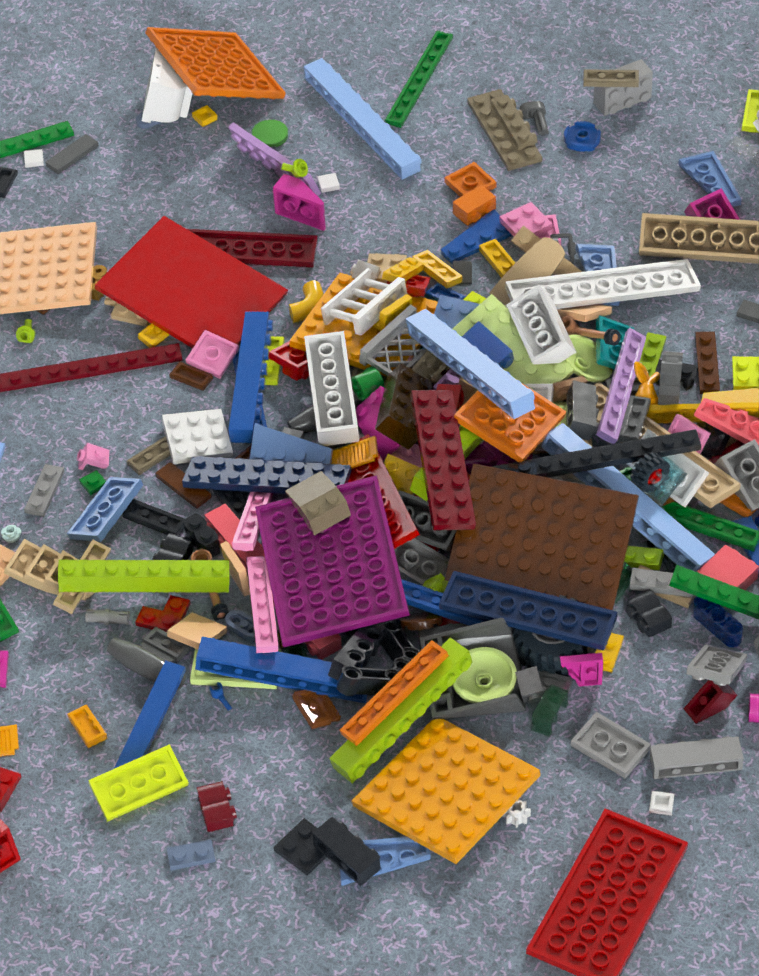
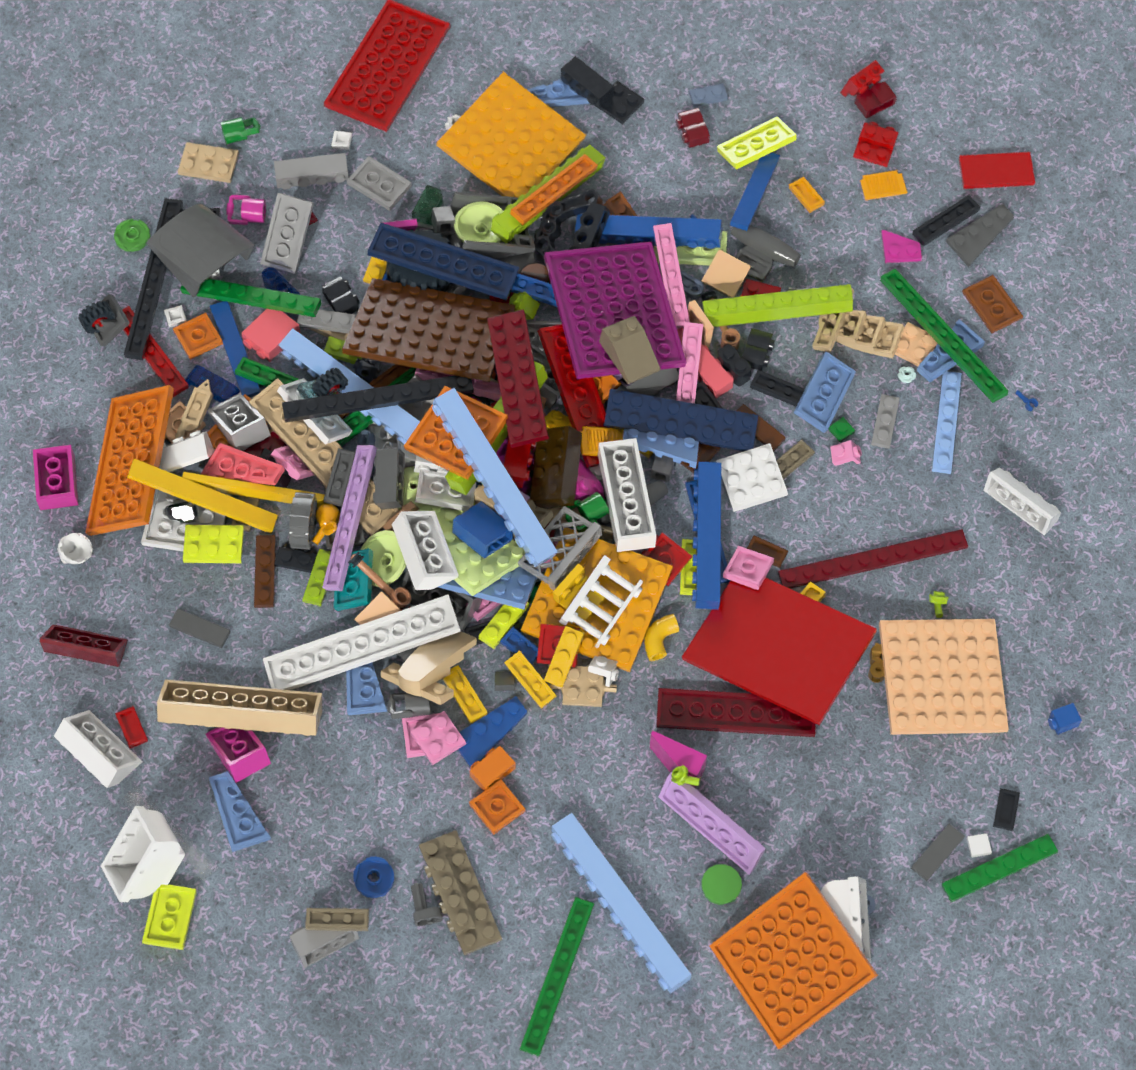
camera: 175 degrees right, 15 degrees up
(328, 182) = (650, 809): white tile -> none

